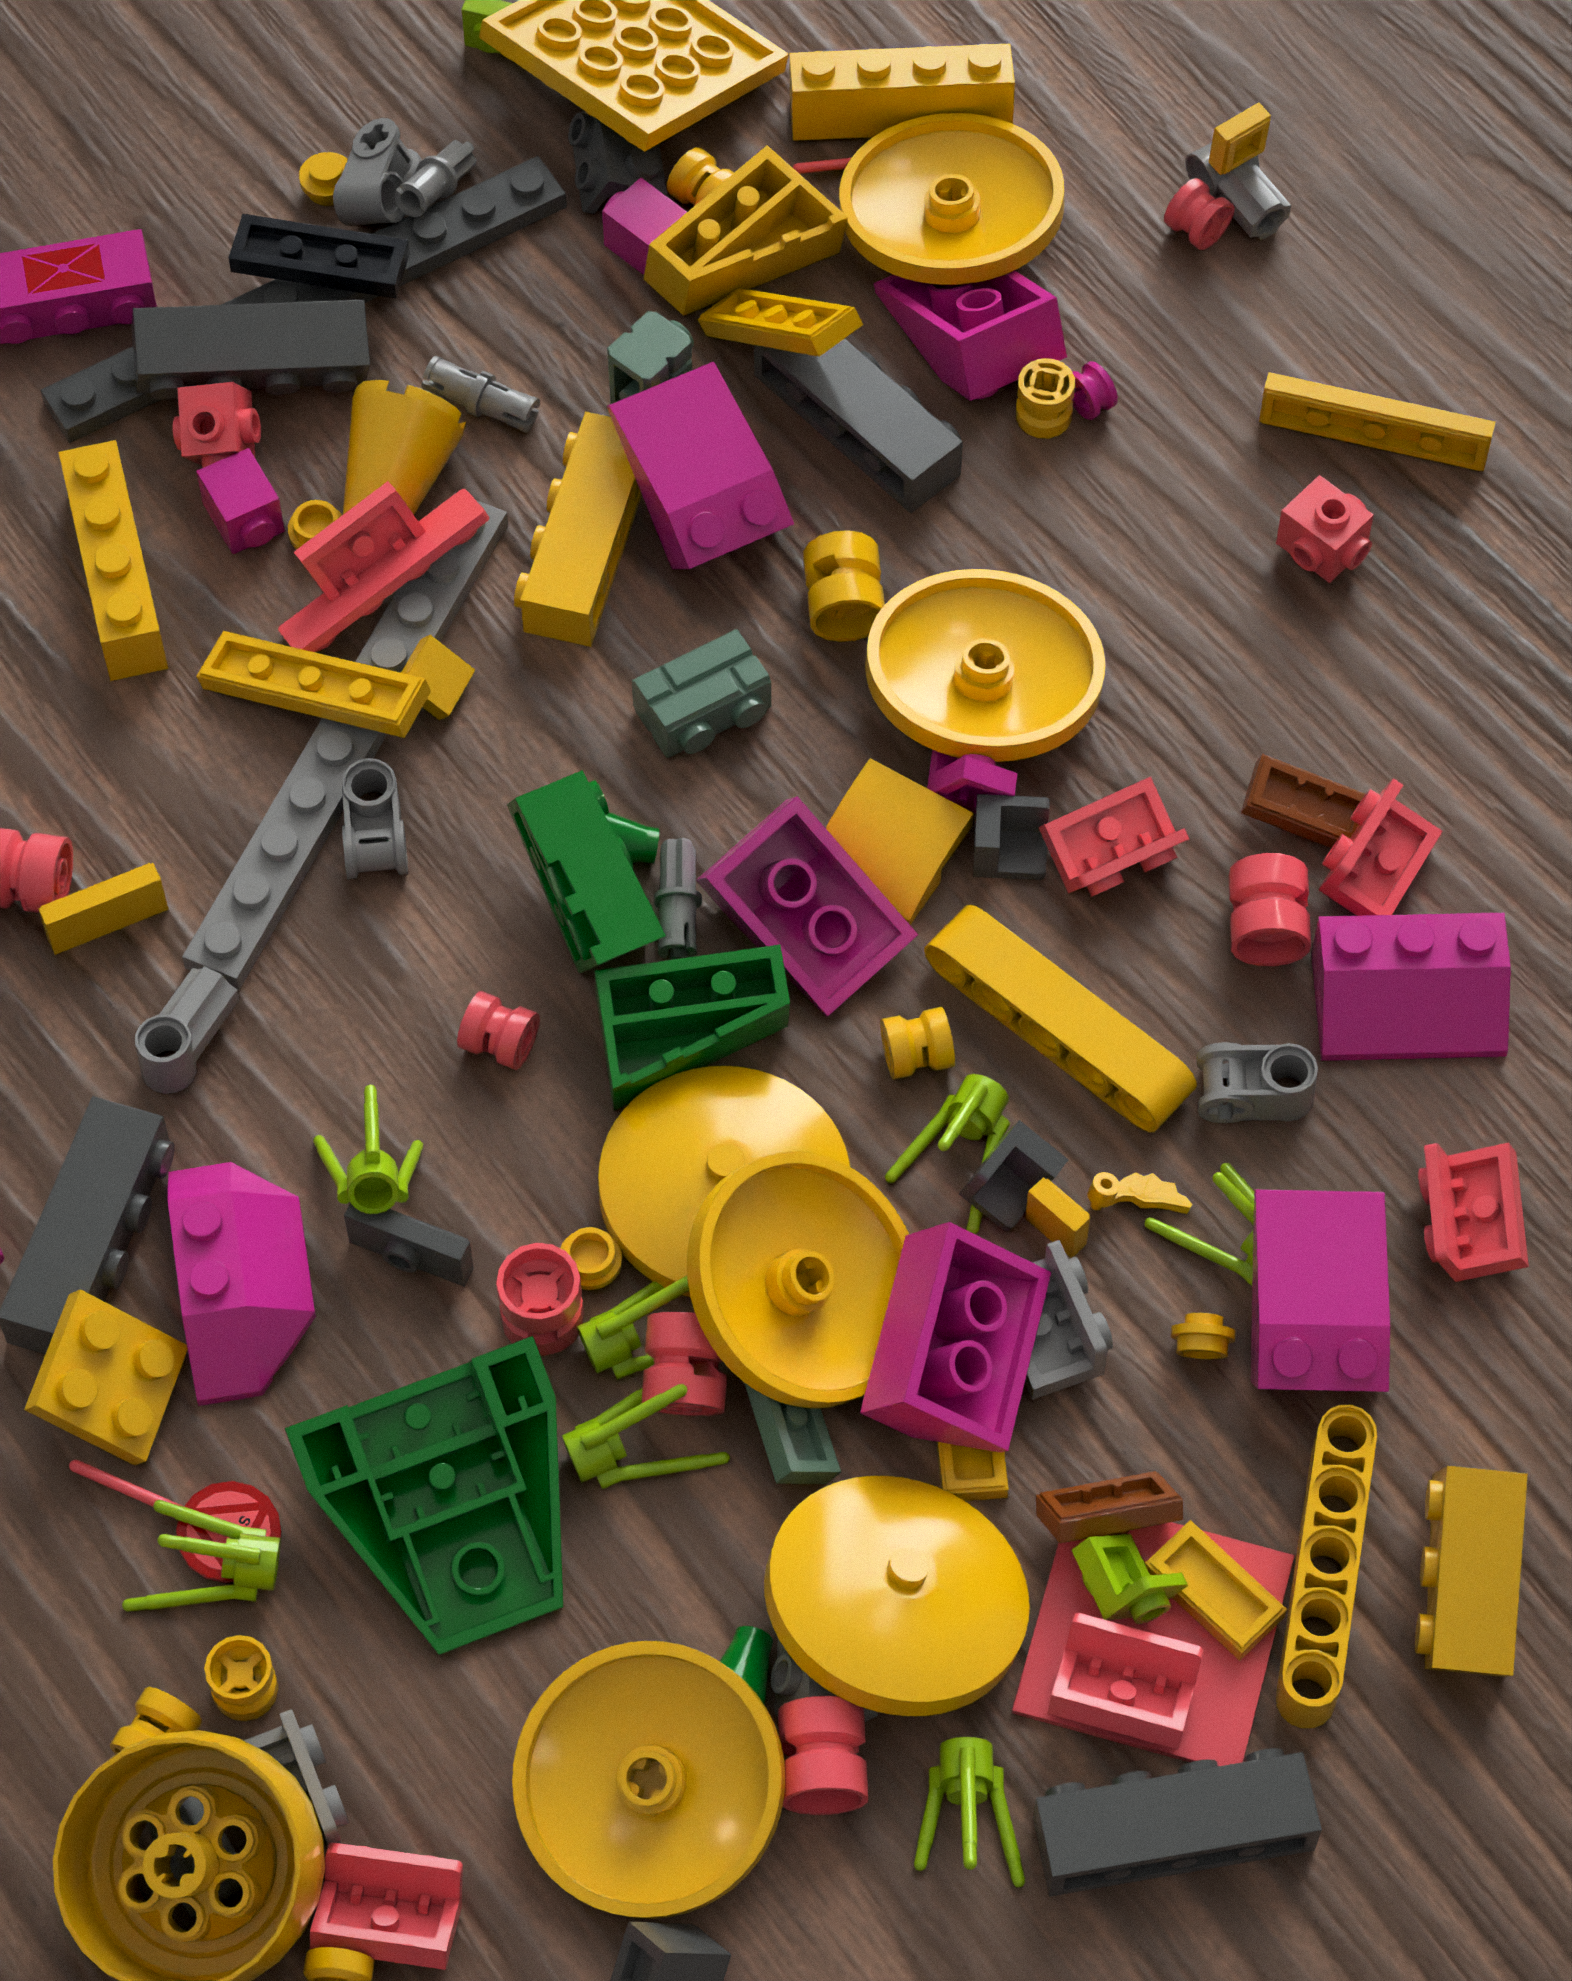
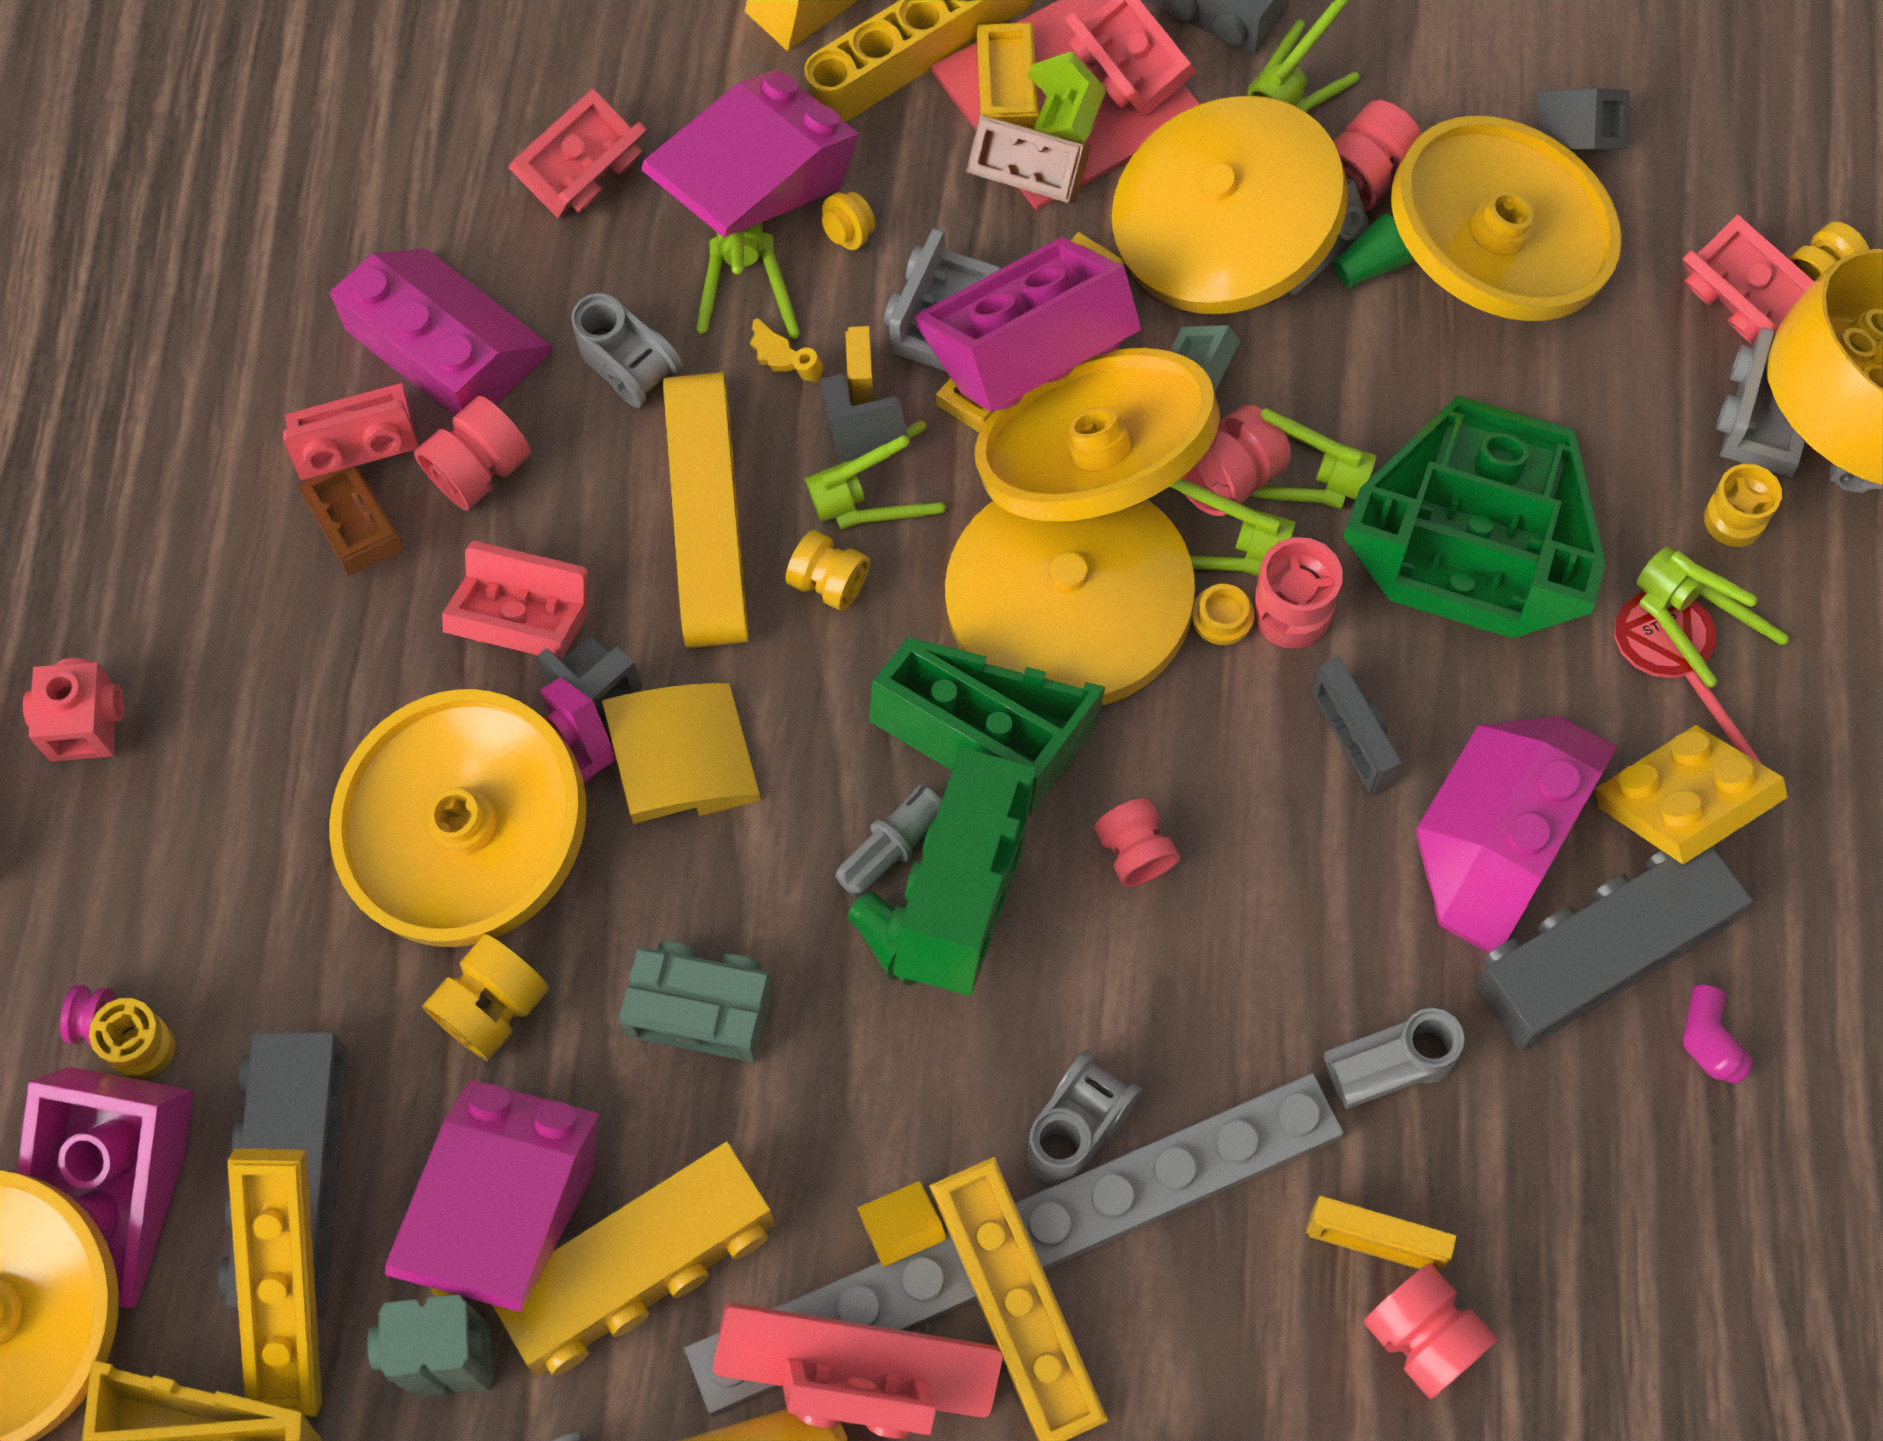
camera: 135 degrees left, 5 degrees up
(156, 1715) = (1843, 512): yellow wheel -> none
(372, 1174) = (1355, 762): lime plant -> none
(804, 892) = (802, 747): dark pink slope -> none

